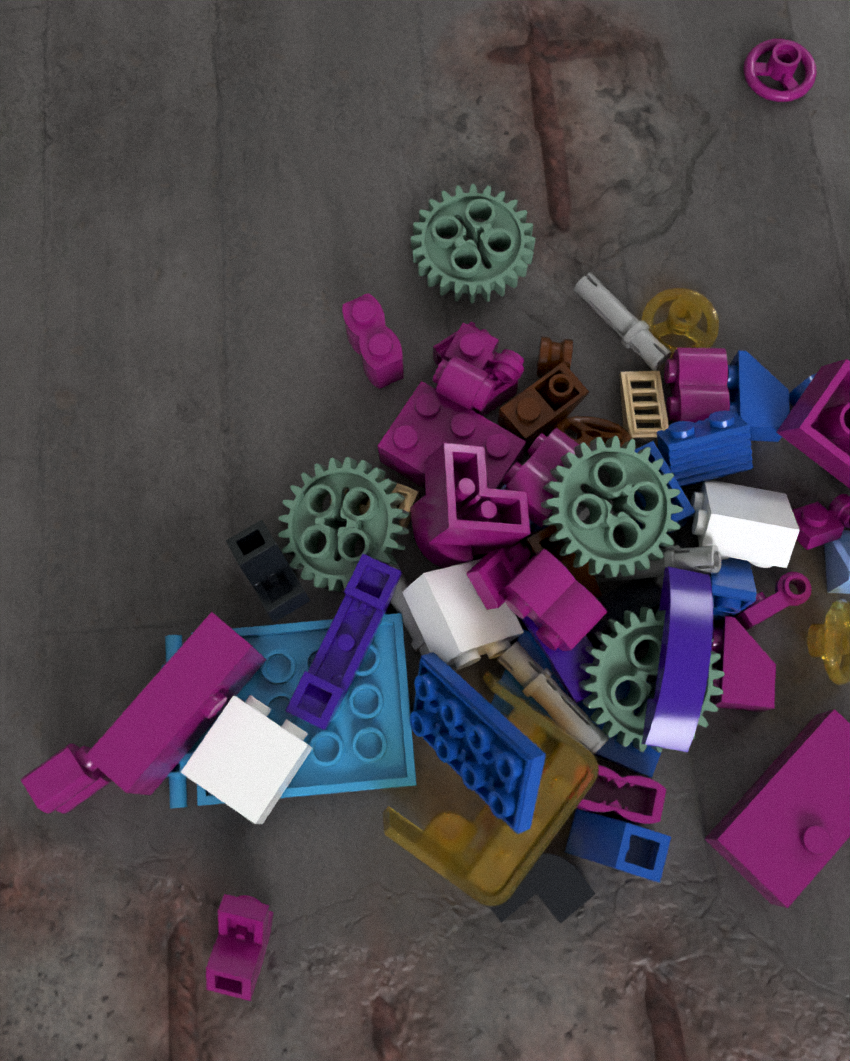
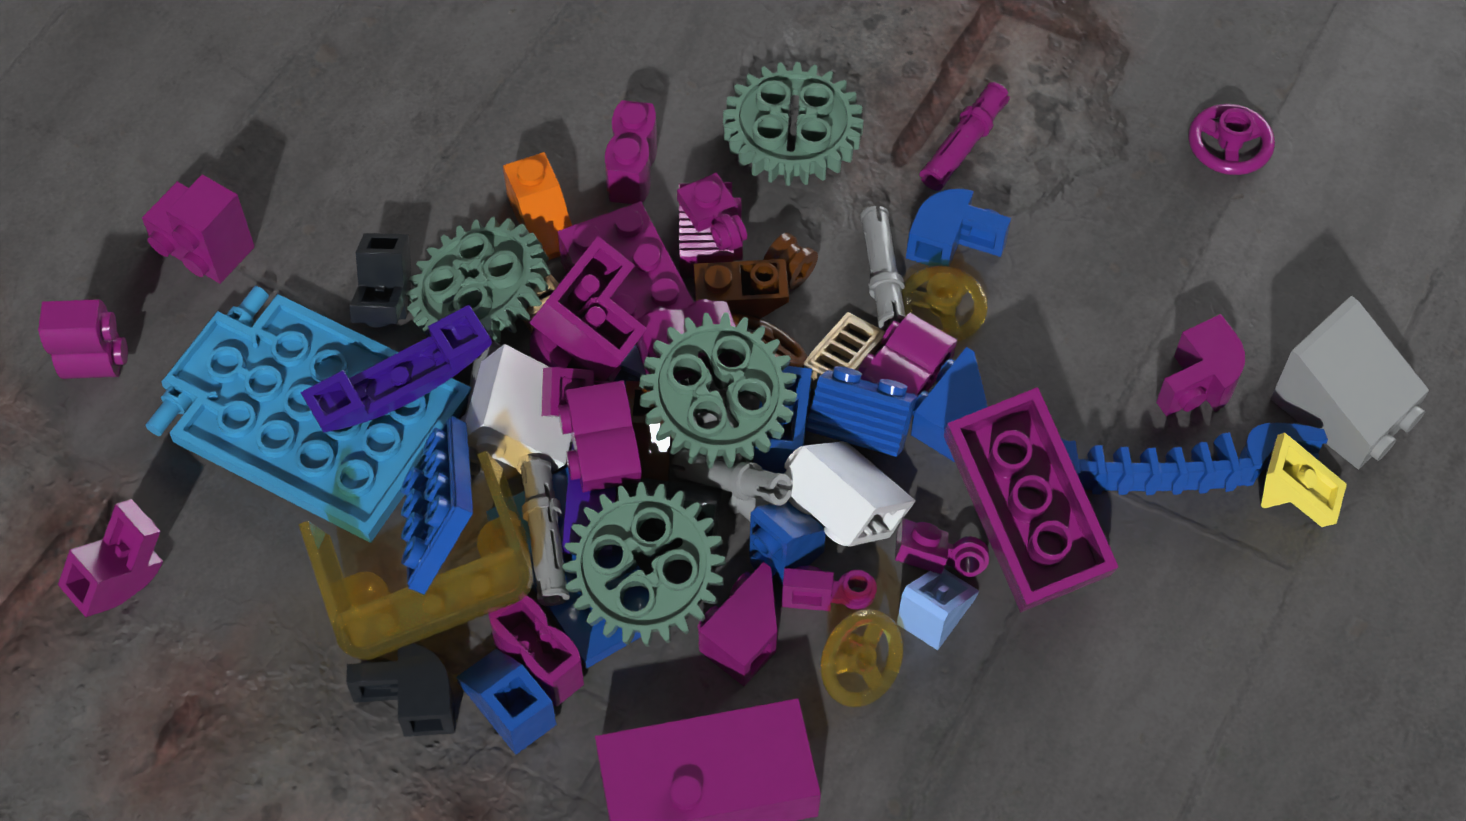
camera: 30 degrees right, 15 degrees down
(85, 616) = (200, 228): none -> magenta brick
(176, 707) = (214, 329): magenta brick -> none
(248, 758) = (240, 410): white brick -> none
(336, 427) = (537, 200): none -> orange slope
(464, 383) = (674, 221): magenta brick -> none
(600, 165) = (974, 123): none -> magenta pin
(645, 256) = (950, 220): none -> blue brick
(683, 660) = (673, 552): dark purple slope -> none

